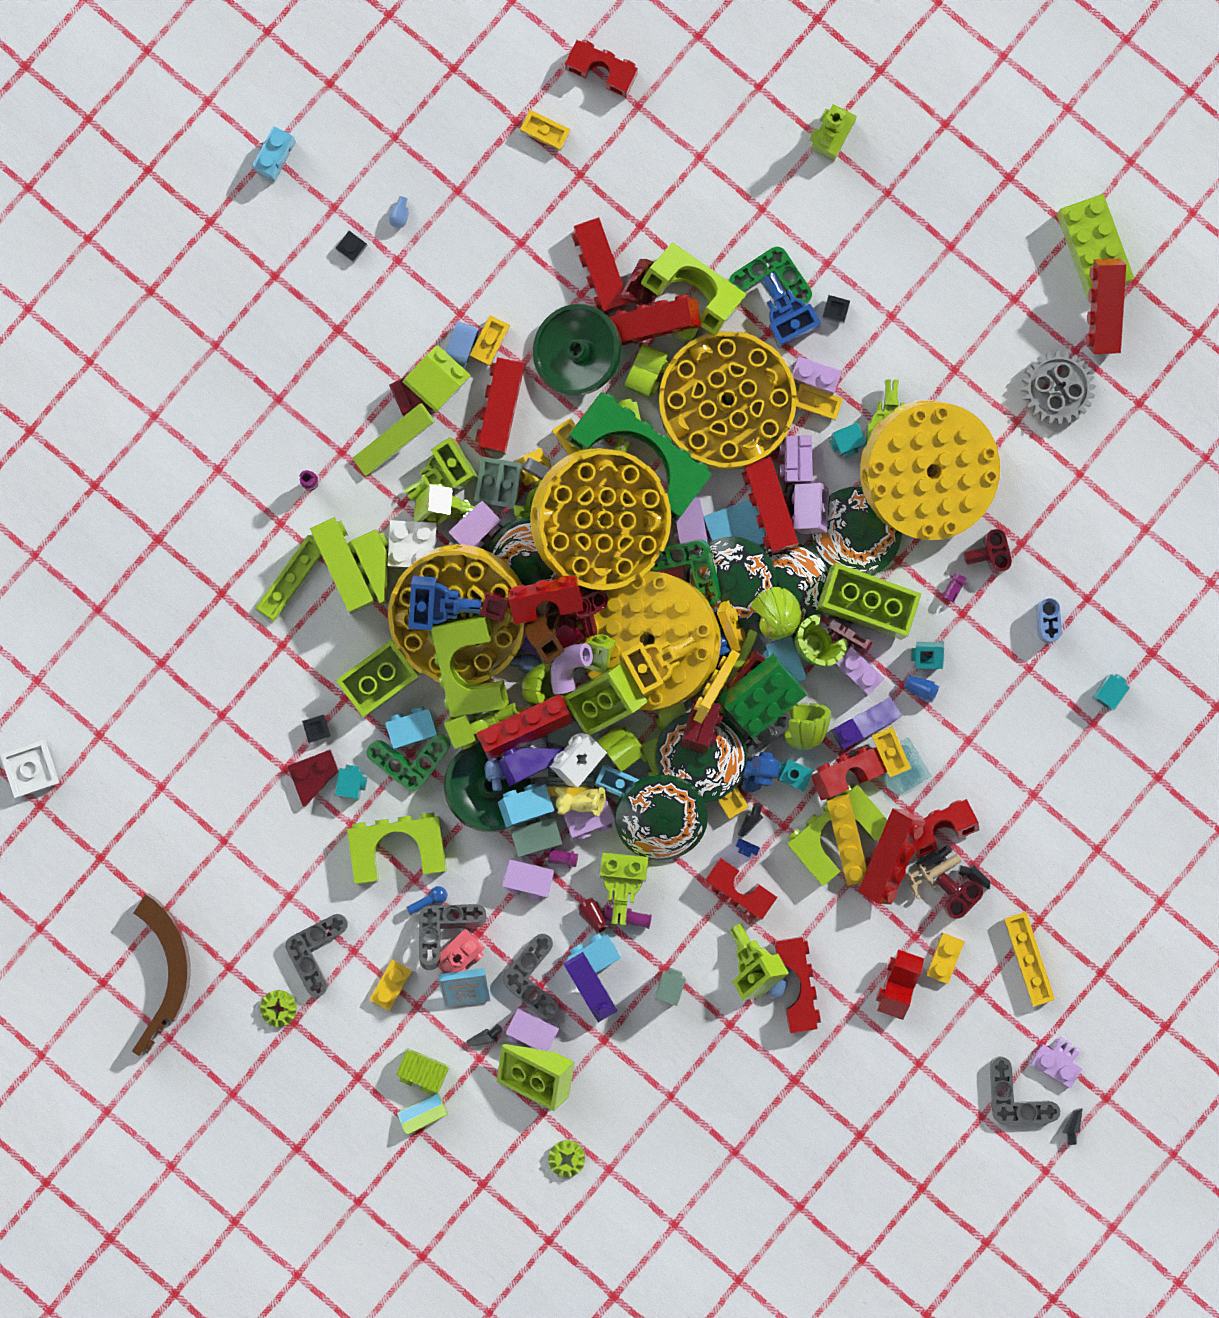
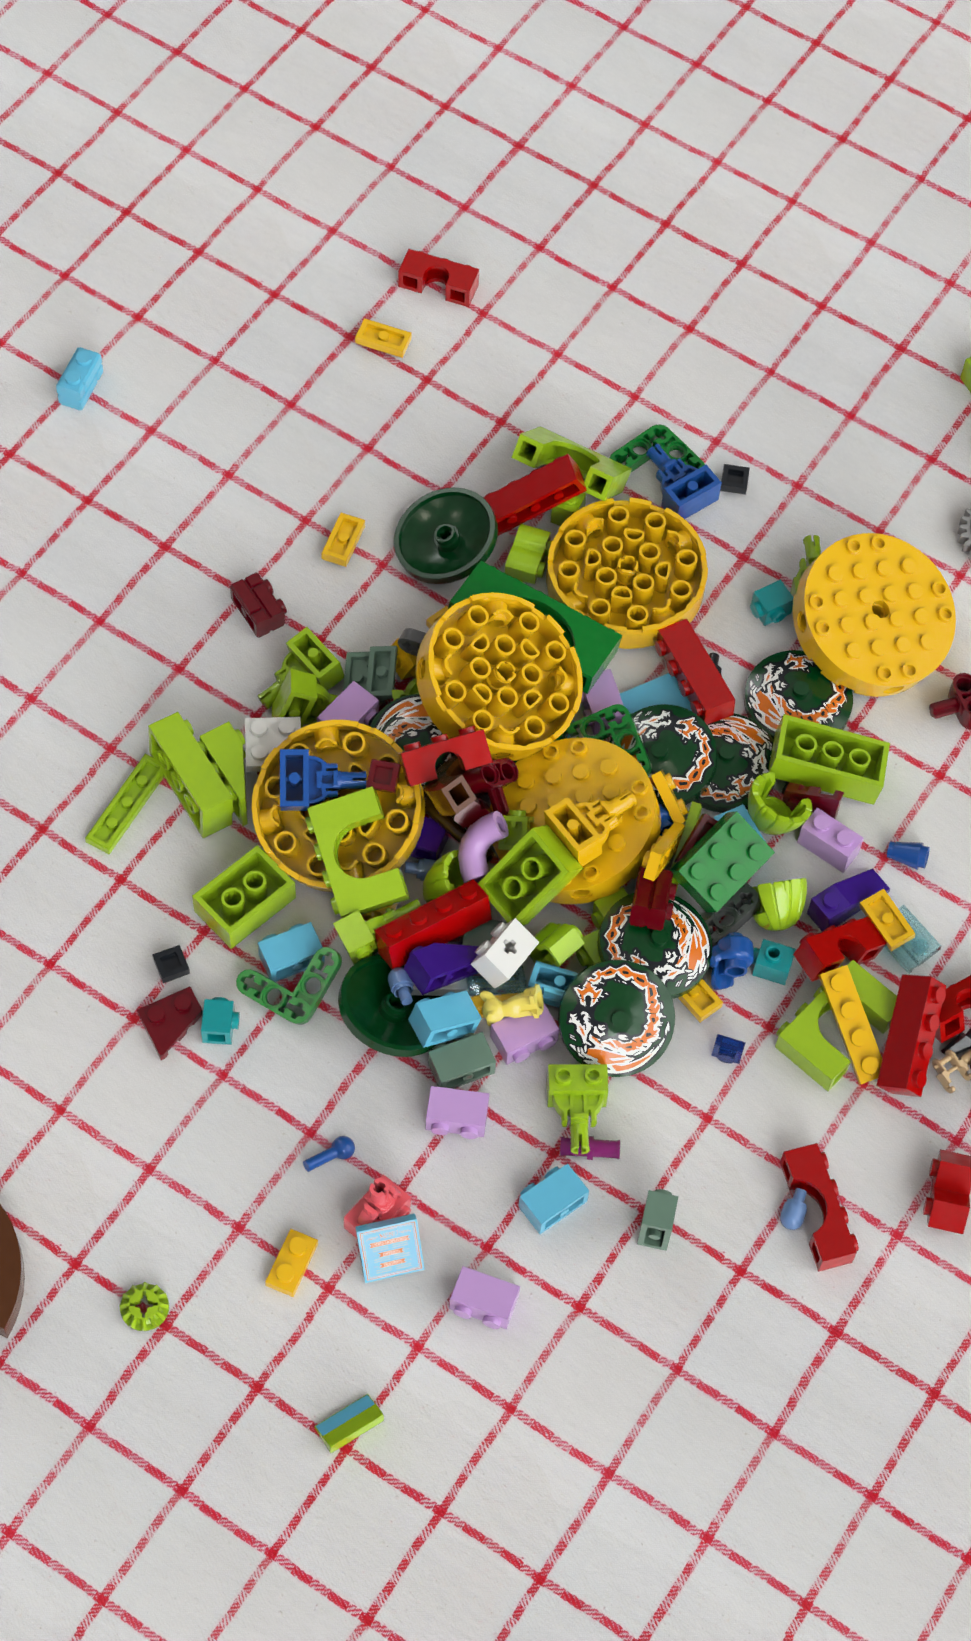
camera: 10 degrees left, 25 degrees down
(305, 476) = (142, 689): magenta pin -> none
(307, 945) = (180, 1222): dark grey beam -> none
(351, 246) = (174, 463): black plate -> none
(365, 839) = (315, 1067): lime arch -> none
(393, 439) = (240, 641): lime tile -> none
(399, 213) = (226, 426): medium blue cylinder -> none
(422, 1071) = (344, 1364): lime brick -> none
(436, 378) = (287, 572): lime slope -> none
(439, 922) = (393, 1166): dark grey beam -> none
(462, 343) = (309, 545): medium blue beam -> none
(485, 1037) = (423, 1314): black bar -> none
(501, 405) = (363, 600): red brick -> none
(524, 973) = (465, 1232): dark grey beam -> none
(536, 1074) = (496, 1347): lime slope -> none
(564, 858) = (498, 1085): magenta pin -> none
(566, 1147) = (552, 1476): lime gear -> none
(590, 987) = (555, 1226): dark purple slope -> none
(592, 914) = (544, 1146): dark red cone -> none
(600, 265) = (460, 452): red brick -> none
(634, 290) = (506, 468): dark red wing -> none
(722, 879) = (747, 1113): red arch -> none
(751, 820) = (729, 1019): black bar -> none
(756, 966) = (765, 1185): lime brick -> none
(778, 613) = (725, 779): lime hair -> none
(797, 459) = (717, 626): lavender brick -> none
(810, 508) = (742, 671): lavender brick -> none
(816, 375) = (725, 542): lavender brick -> none
(818, 402) = (731, 570): yellow plate -> none
(833, 131) = (703, 311): lime brick -> none
(935, 661) = (917, 808): teal brick -> none
(954, 587) = (927, 738): magenta pin -> none

